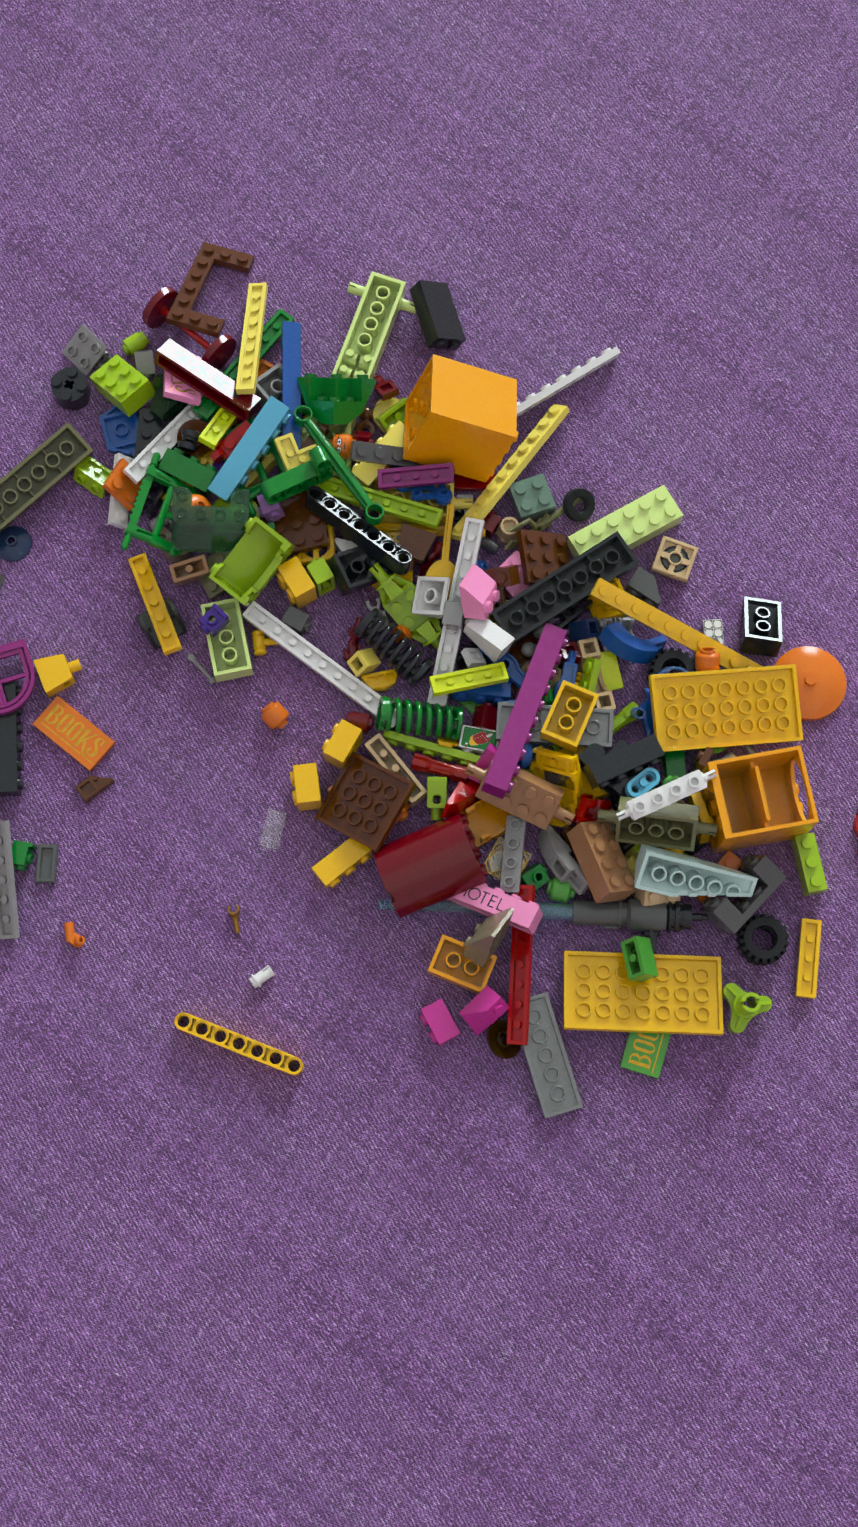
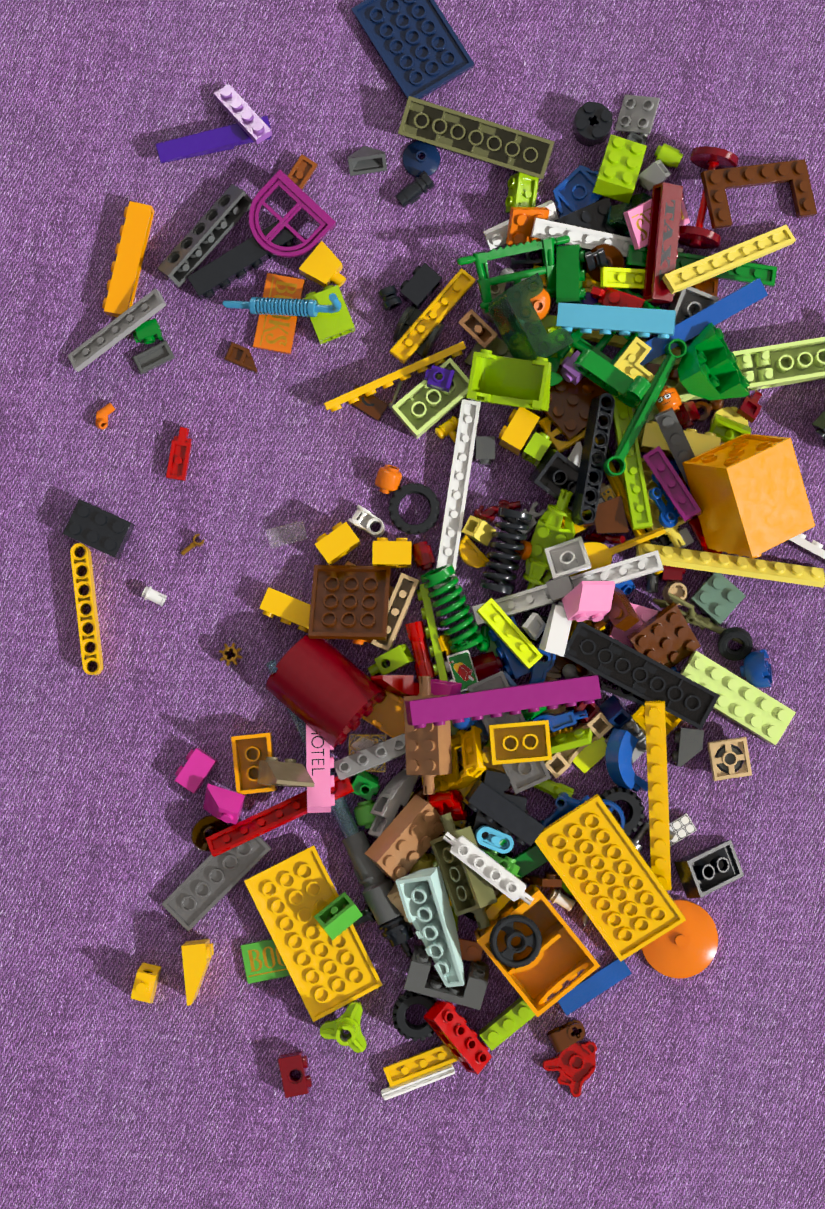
camera: 65 degrees right, 10 degrees up
(37, 564) = (413, 190): none -> black axle
(73, 719) = (285, 306): none -> dark azure piece
(100, 690) = (330, 325): none -> lime brick
(117, 631) = (389, 298): none -> black wheel
(122, 599) = (420, 286): none -> black brick
(149, 886) = (179, 456): none -> red hinge
(172, 993) = (98, 529): none -> black brick
(189, 670) = (387, 381): none -> yellow plate
(197, 700) = (370, 405): none -> reddish brown tile
(301, 754) = (366, 521): none -> white piece
(308, 689) = (417, 489): none -> black tyre
(352, 940) = (226, 657): none -> pearl gold gear
(467, 710) = (485, 644): none -> green arm
(609, 497) = (757, 669): none -> blue cylinder
(611, 1171) = (146, 983): none -> yellow torso
(617, 1113) = (196, 959): none -> yellow slope
(707, 659) = (644, 838): orange head -> none
(750, 1081) = (291, 1085): none -> dark red brick
(752, 819) = (506, 956): none -> black wheel
(800, 911) = (458, 1036): none -> red brick
(813, 763) = (594, 985): none -> blue tile
(823, 972) = (422, 1080): none -> white axle
(845, 823) = (564, 1036): none -> reddish brown piece

